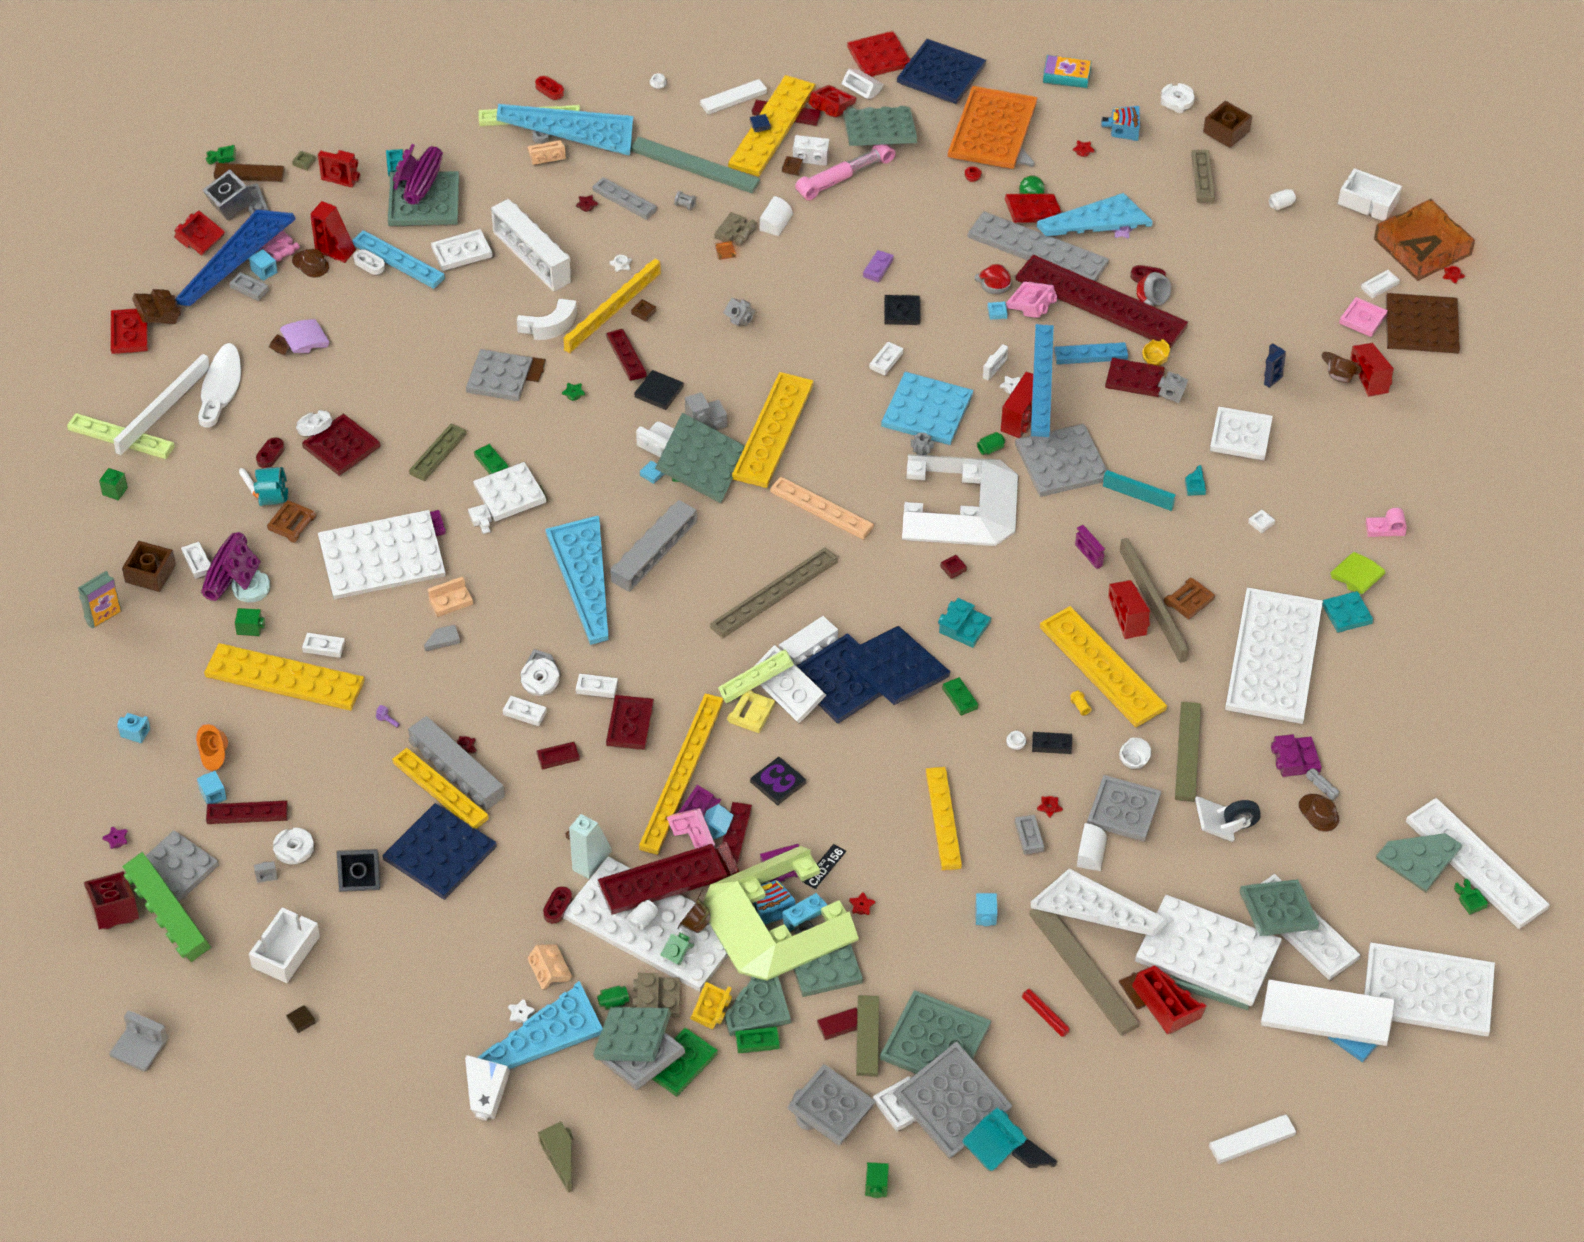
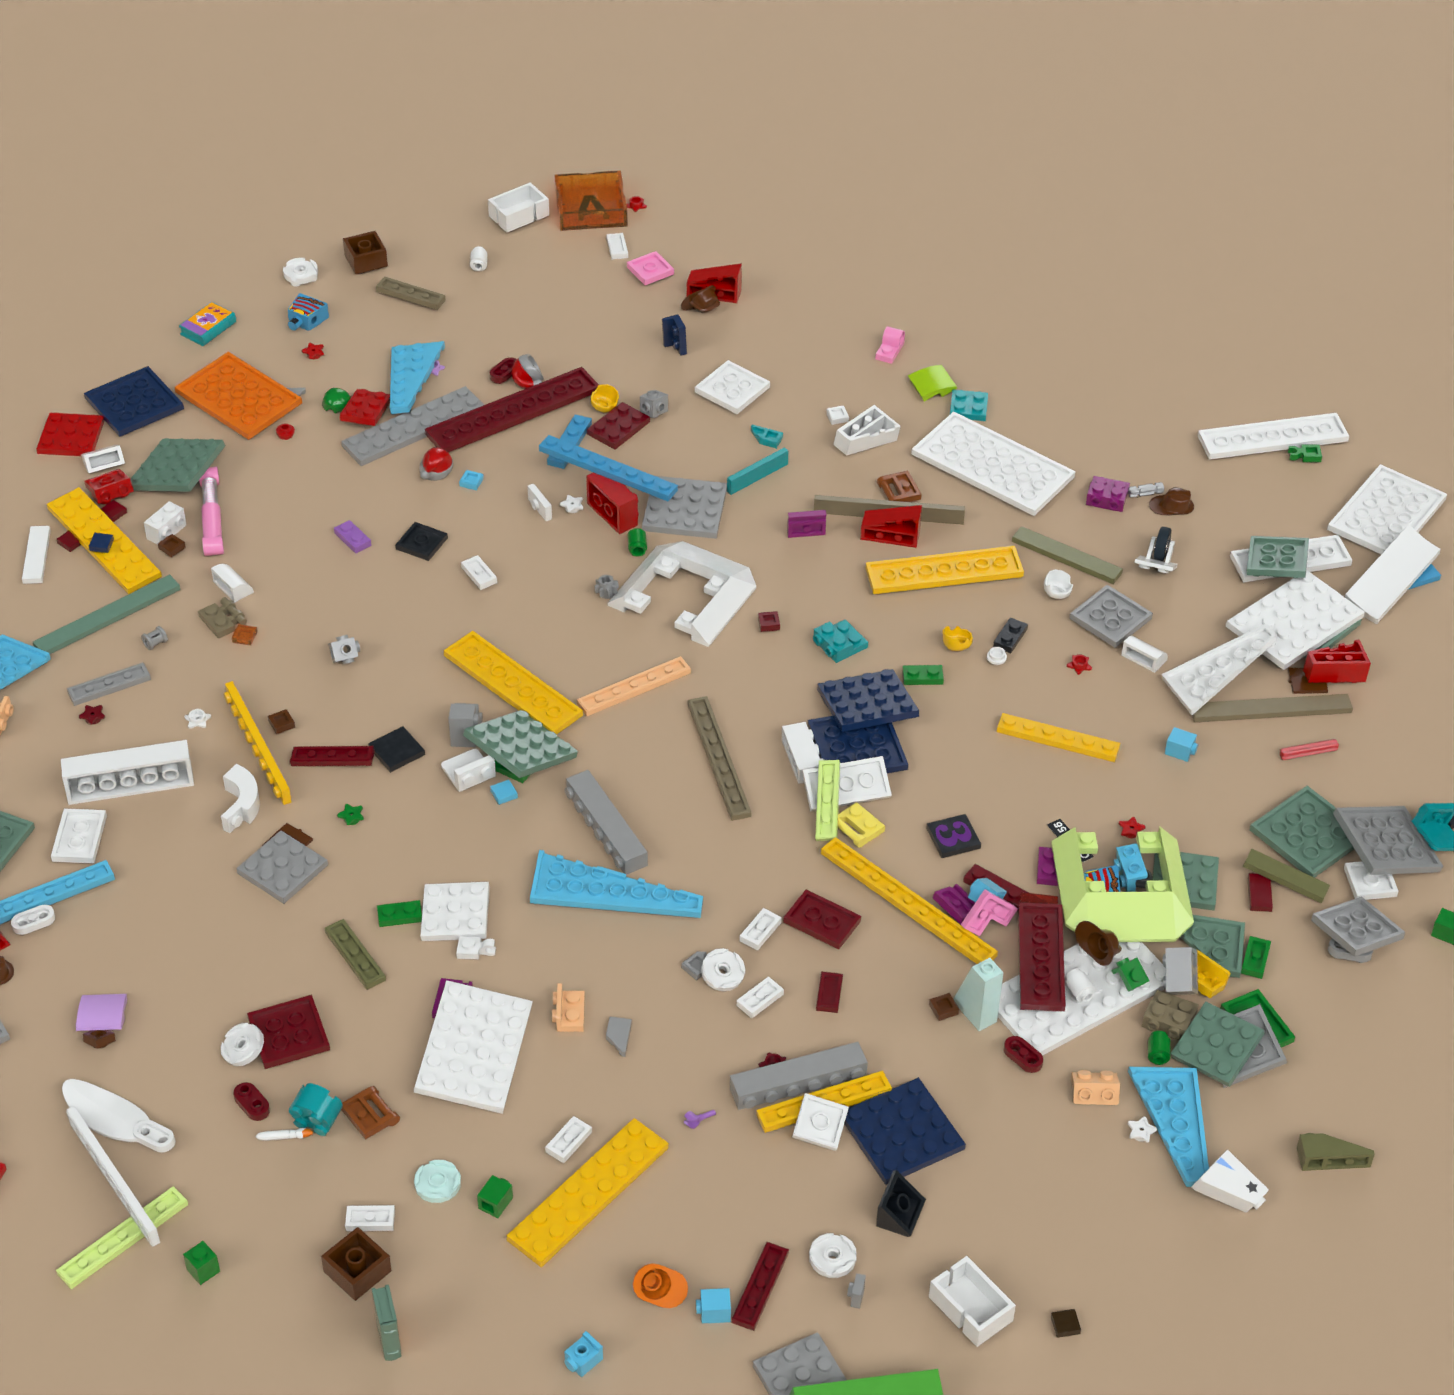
camera: 65 degrees left, 5 degrees down
(231, 562) = (406, 1186): magenta plate -> none
(415, 792) = (820, 1122): none -> white tile
(696, 982) = (1180, 971): none -> light grey brick
(927, 407) = (558, 569): medium azure plate -> none
(1015, 702) = (957, 639): none -> yellow hair
(1029, 834) = (1109, 686): light grey plate -> none
(1032, 299) = (479, 449): bright pink plate -> none
(1078, 699) = (977, 599): yellow pin -> none
(1242, 545) = (866, 431): none -> white wedge
(1420, 858) = (1255, 464): sand green plate -> none
(1422, 323) = (679, 240): reddish brown plate -> none

